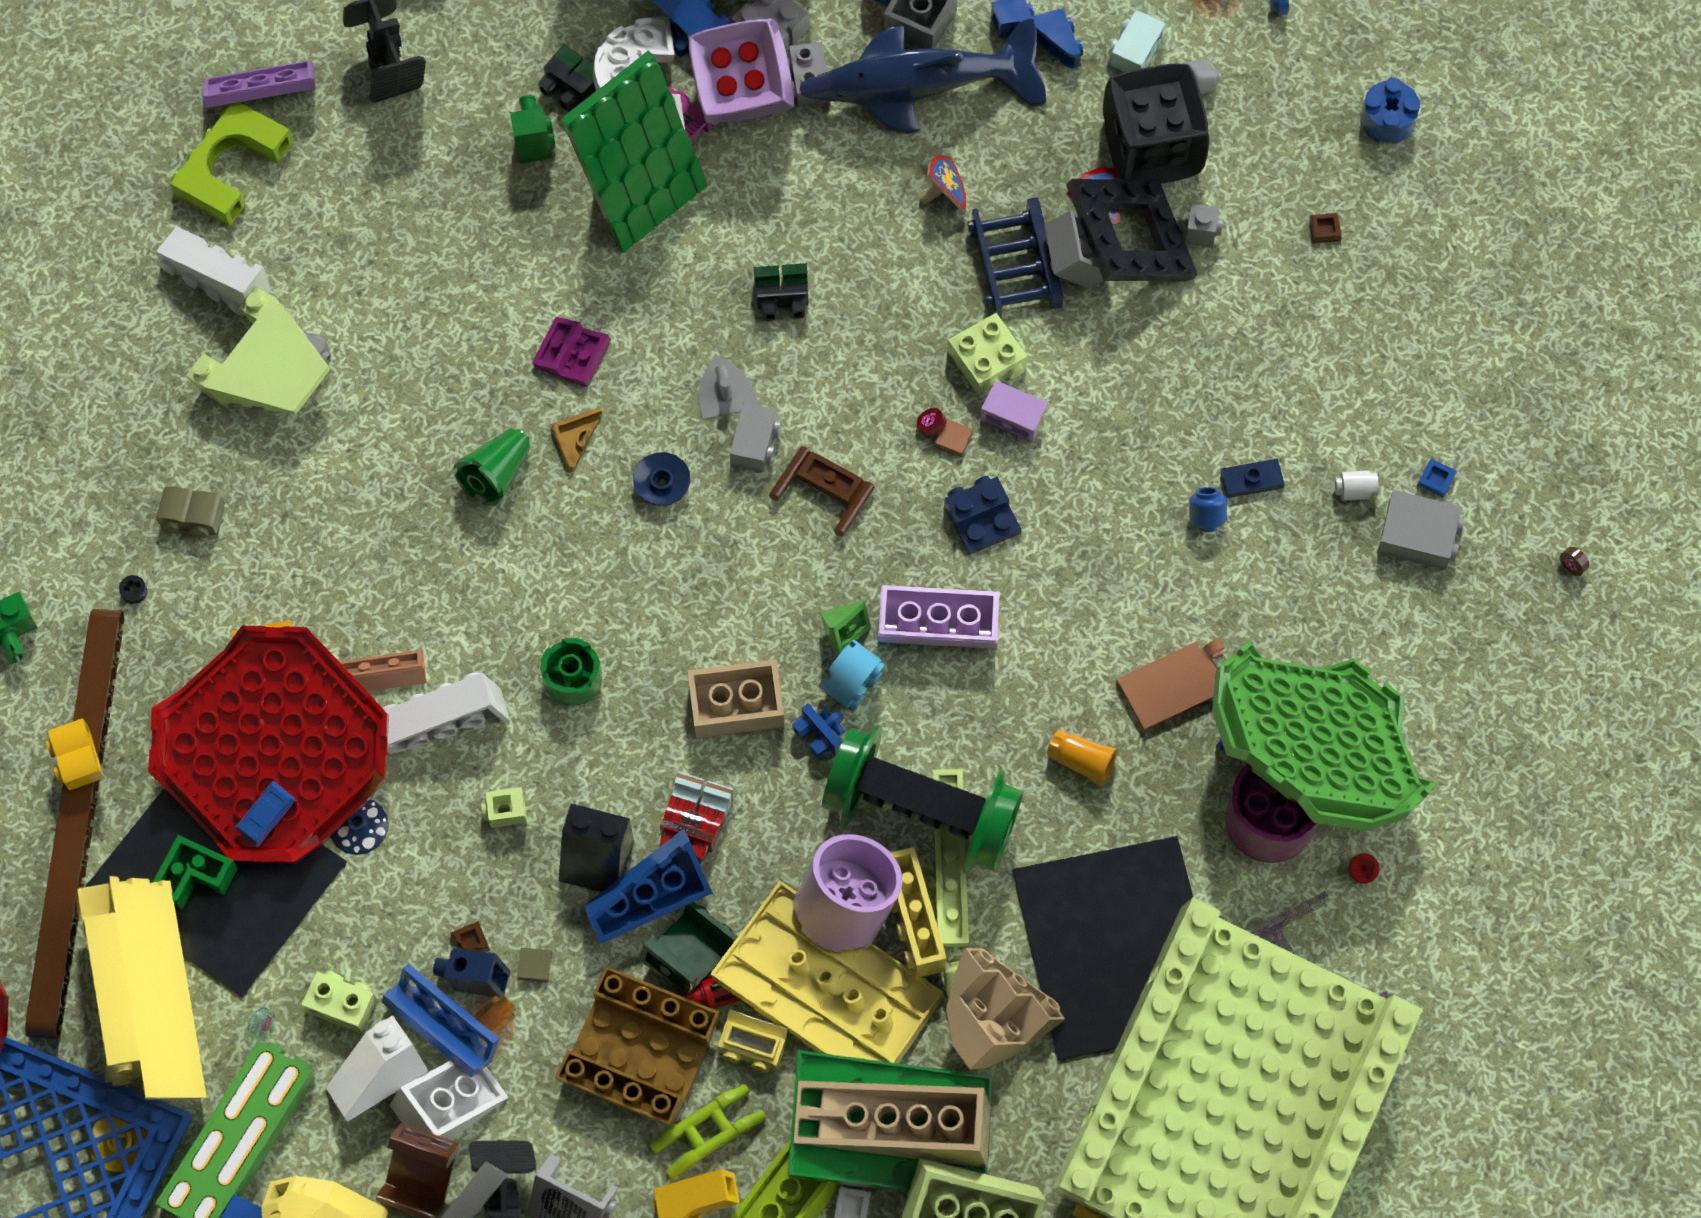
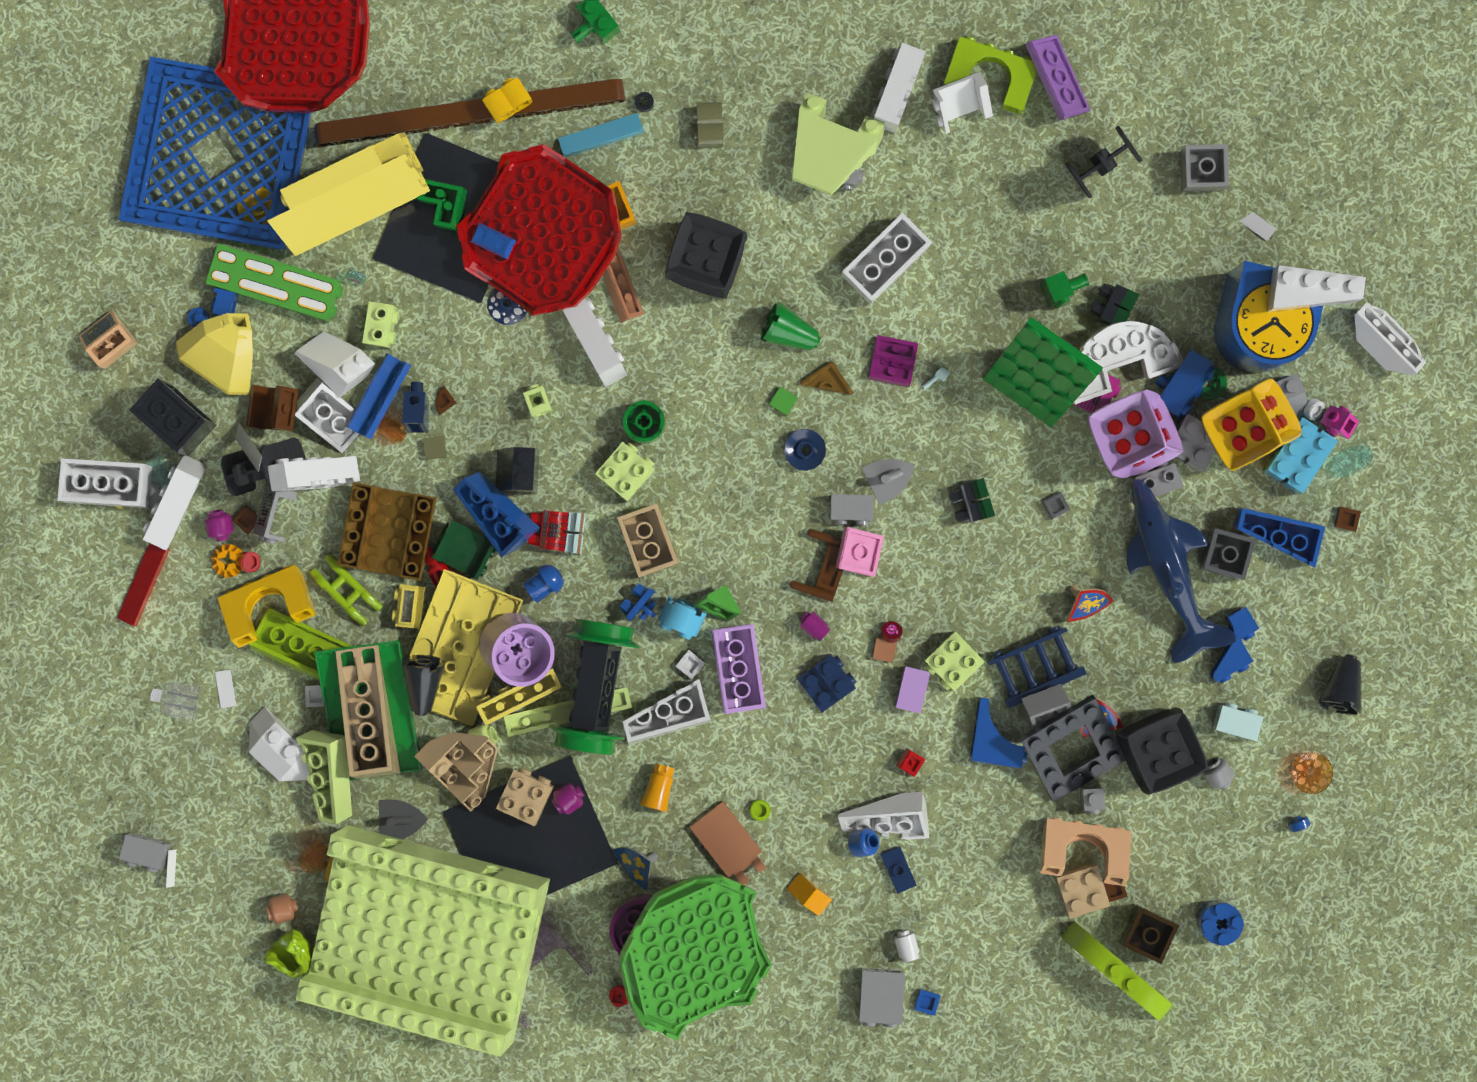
camera: 80 degrees right, 20 degrees up
(160, 649) = (600, 135): none -> medium azure slope
(250, 196) = (960, 99): none -> white panel
(366, 538) = (705, 255): none -> black piece
(434, 327) = (886, 258): none -> white brick
(528, 1119) = (313, 473): none -> white wedge
(588, 496) = (783, 401): none -> bright green tile
(603, 297) = (942, 374): none -> light aqua hand
(633, 710) = (626, 471): none -> yellowish green brick
(762, 848) = (544, 582): none -> blue piece
(810, 198) = (1056, 505): none -> flat silver tile
(815, 438) = (859, 551): none -> bright pink tile
(866, 1034) = (422, 681): none -> black cone
(901, 514) = (814, 625): none -> magenta brick
(919, 684) = (690, 664): none -> white tile
(982, 711) = (672, 714): none -> white wedge
(1054, 1123) = (399, 818): none -> dark grey shield
(1058, 932) = (525, 796): none -> tan brick
(1073, 877) = (568, 798): none -> magenta head
(1103, 333) = (990, 745): none -> blue arch
(1111, 433) = (910, 762): none -> red tile
(1138, 635) = (760, 810): none -> lime tile
(1178, 461) = (897, 814): none -> white wedge
(1183, 807) = (636, 864): none -> blue shield
(1264, 213) = (1112, 842): none -> light nougat arch
(1264, 595) = (809, 894): none -> light orange slope
(1320, 260) = (1082, 890): none -> tan brick
(1390, 193) = (1149, 934): none -> dark brown brick
(1471, 200) = (1116, 971): none -> lime arch

